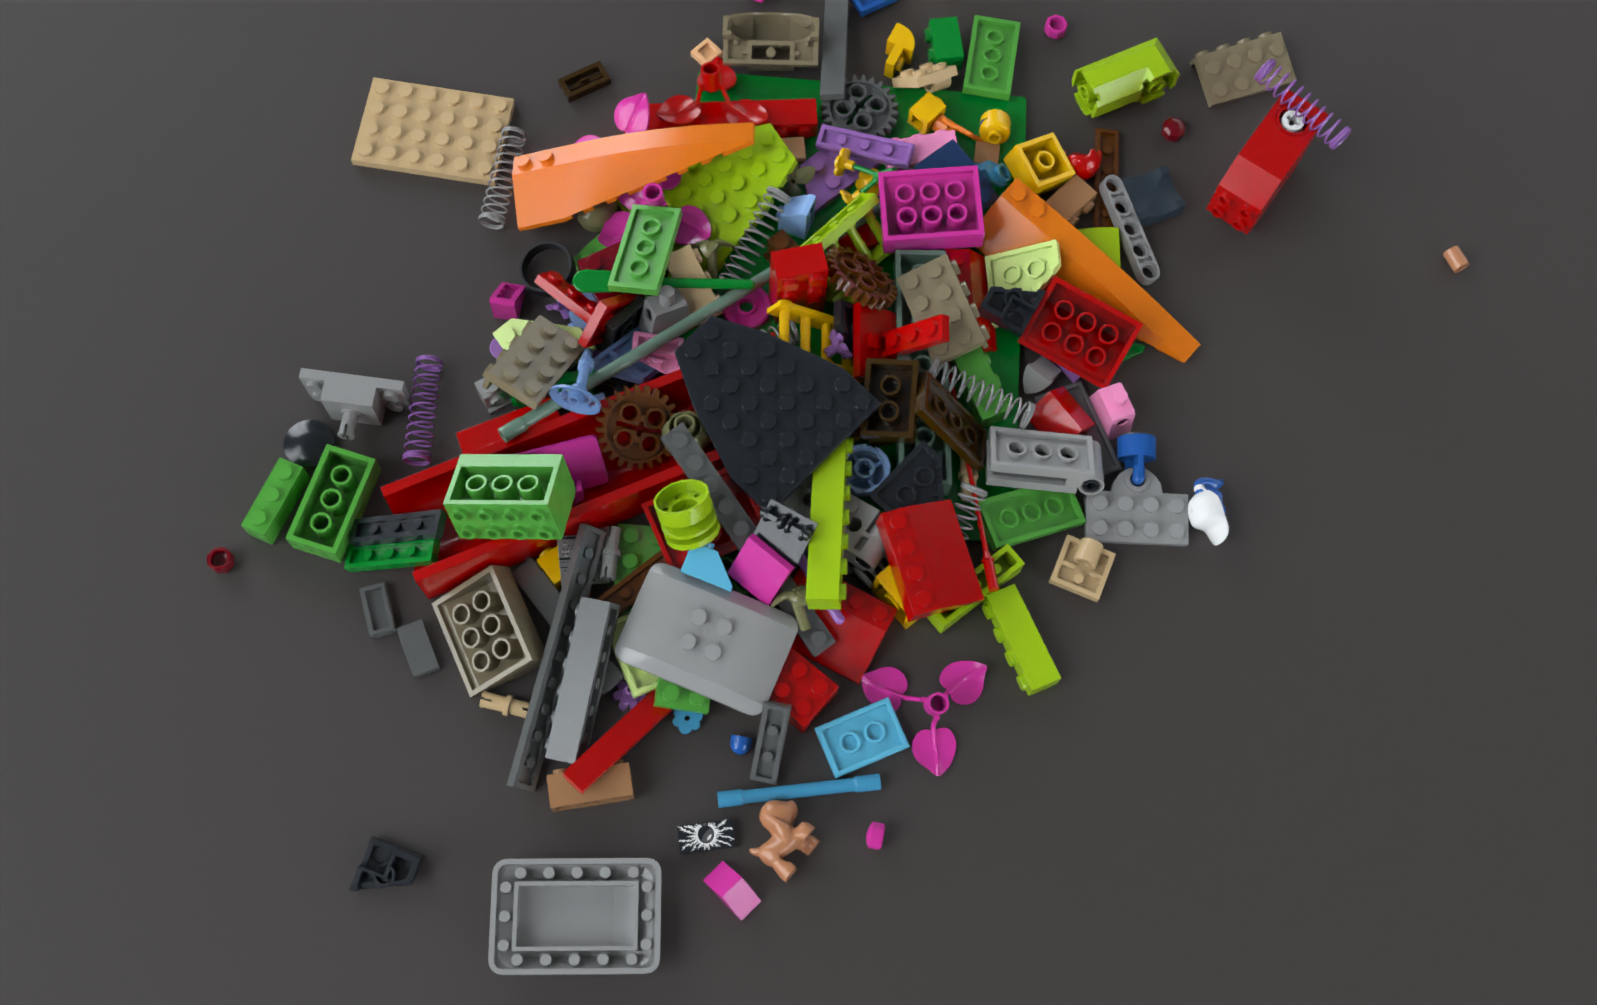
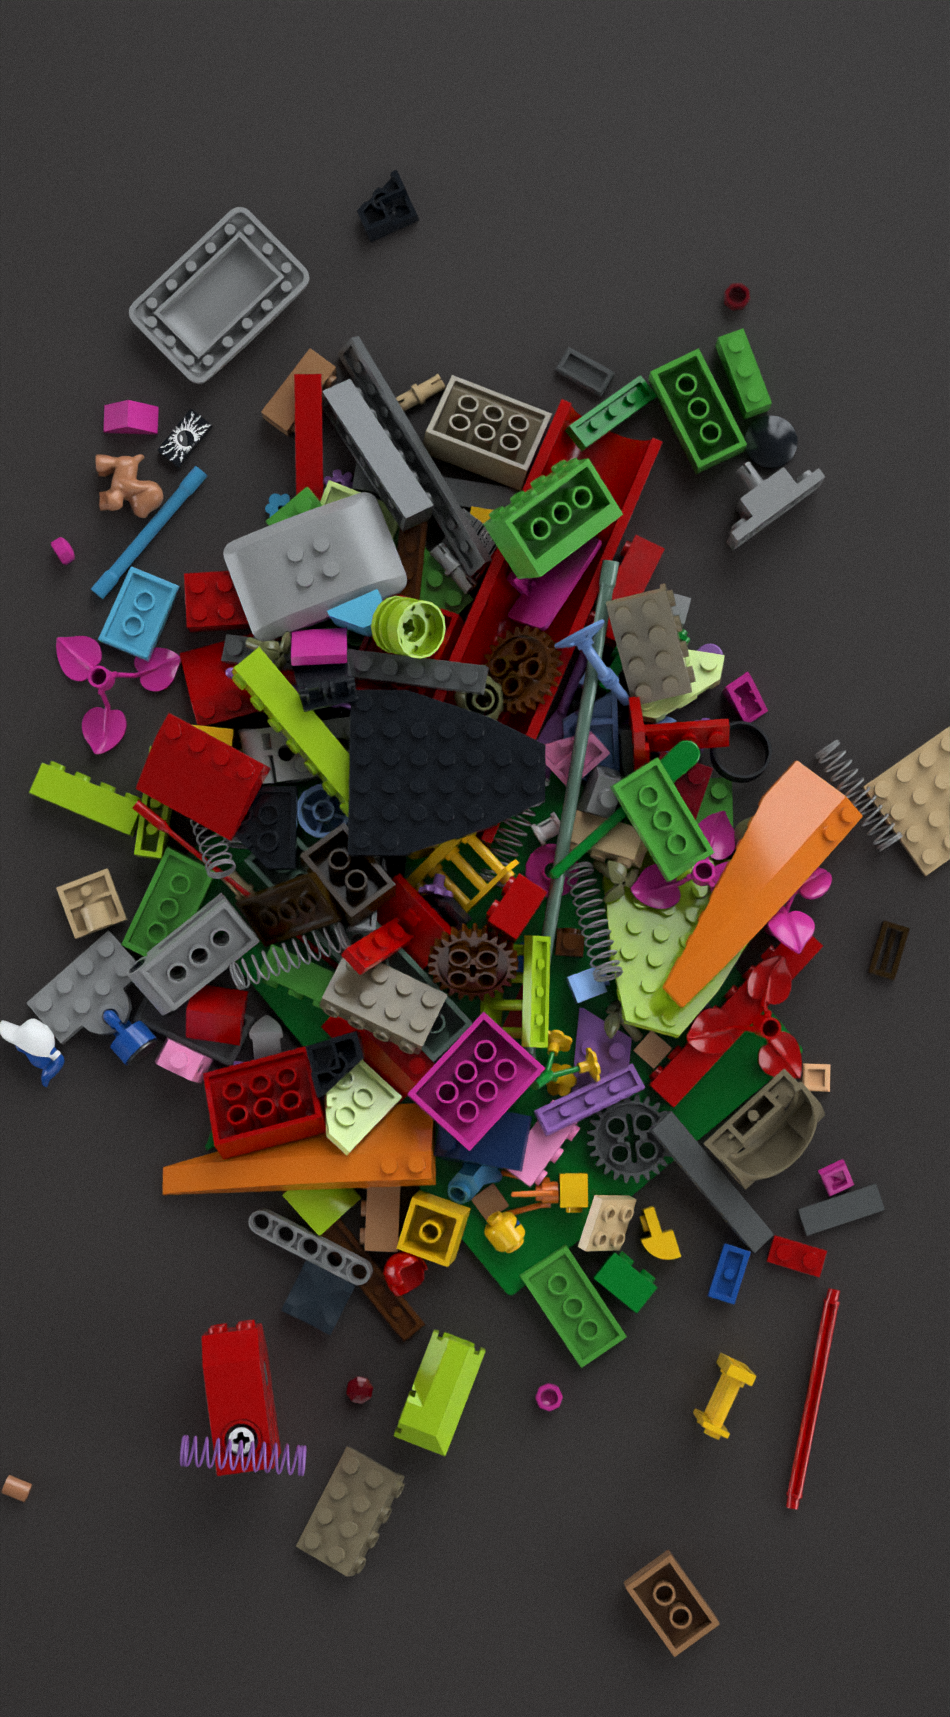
camera: 140 degrees right, 15 degrees up
(398, 528) = (623, 430): black plate -> none
(414, 453) = (672, 508): medium lavender piece -> none
(418, 648) = (525, 372): dark grey tile -> none
(740, 744) = (223, 526): blue hinge -> none
(770, 742) = (199, 542): dark grey tile -> none

